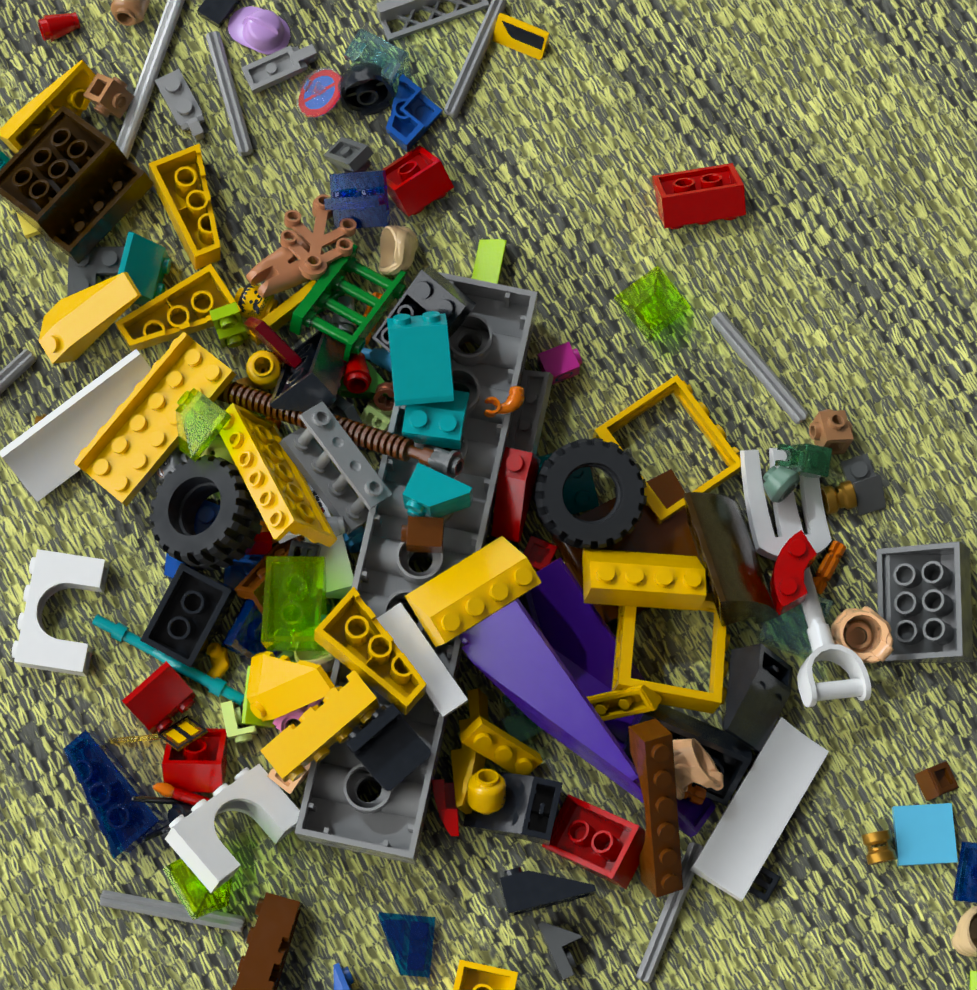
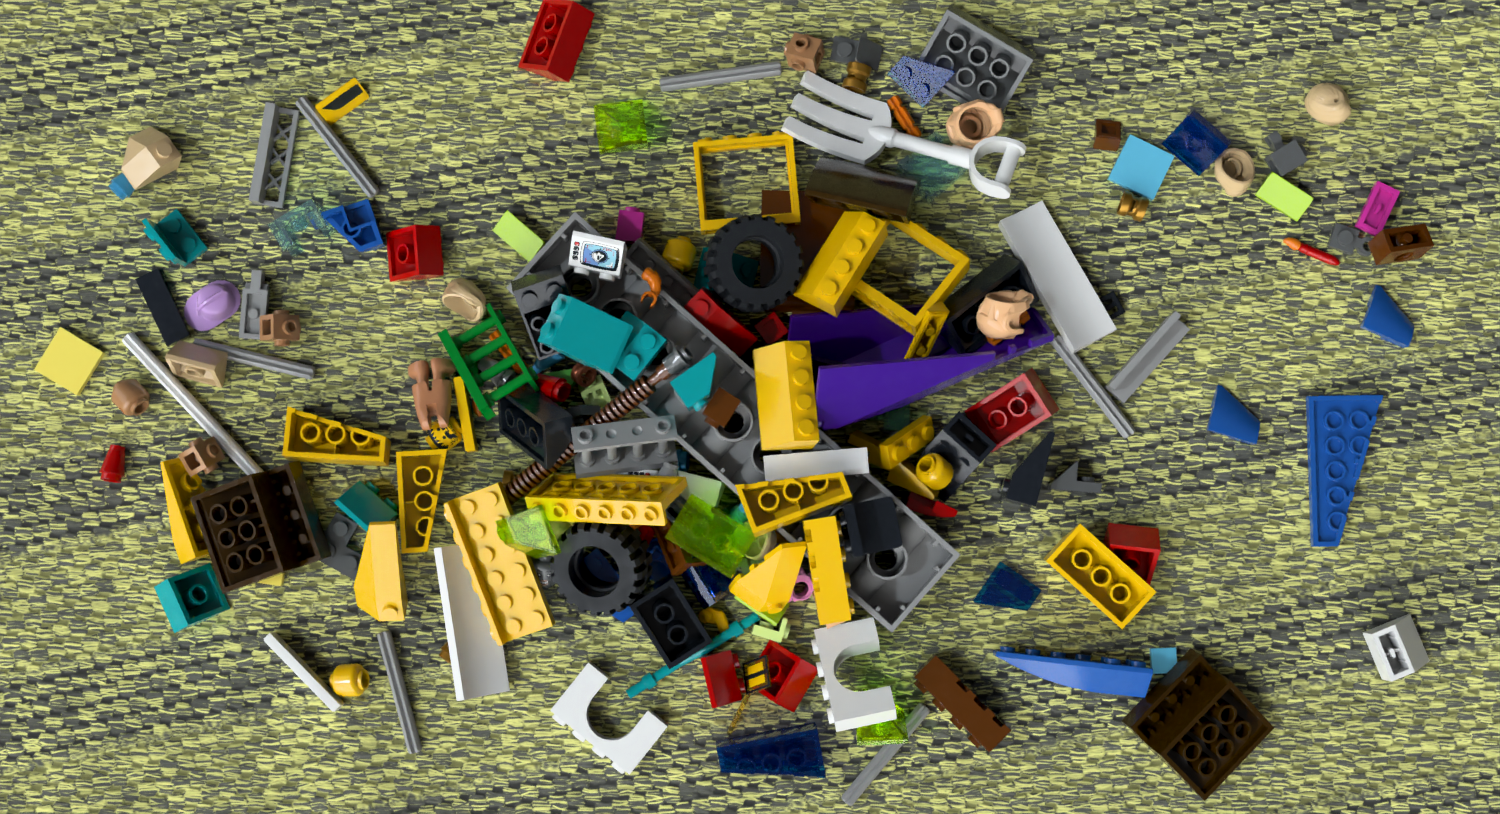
camera: 65 degrees left, 10 degrees up
(178, 808) = (817, 710): black plant -> none
(181, 103) = (240, 401): light grey hinge -> none
(182, 795) = (797, 709): red piece -> none
(195, 44) = (197, 363): none -> tan slope
(229, 325) = (454, 464): lime slope -> none
(262, 361) = (495, 456): yellow head -> none
(271, 98) = (280, 328): none -> medium nougat brick
(272, 341) = (490, 438): dark red tile -> none
(314, 264) = (423, 357): nougat plant -> none
(318, 92) = (296, 287): clear piece -> none
(349, 155) = (364, 293): dark grey slope -> none
(359, 197) = (407, 306): clear blue bracket -> none
(365, 89) = (316, 249): black cylinder -> none
(505, 332) = (597, 256): none -> white slope
(560, 425) = (680, 253): none -> yellow head
(654, 761) = (993, 335): reddish brown arch -> none
(733, 951) = (1147, 357): none -> light grey fence
(755, 694) = (973, 229): black slope -> none
(780, 482) = (824, 115): sand green cone -> none
(787, 576) = (899, 150): red brick -> none
(806, 459) = (818, 84): clear green brick -> none
(876, 559) = (920, 78): none -> clear blue wing

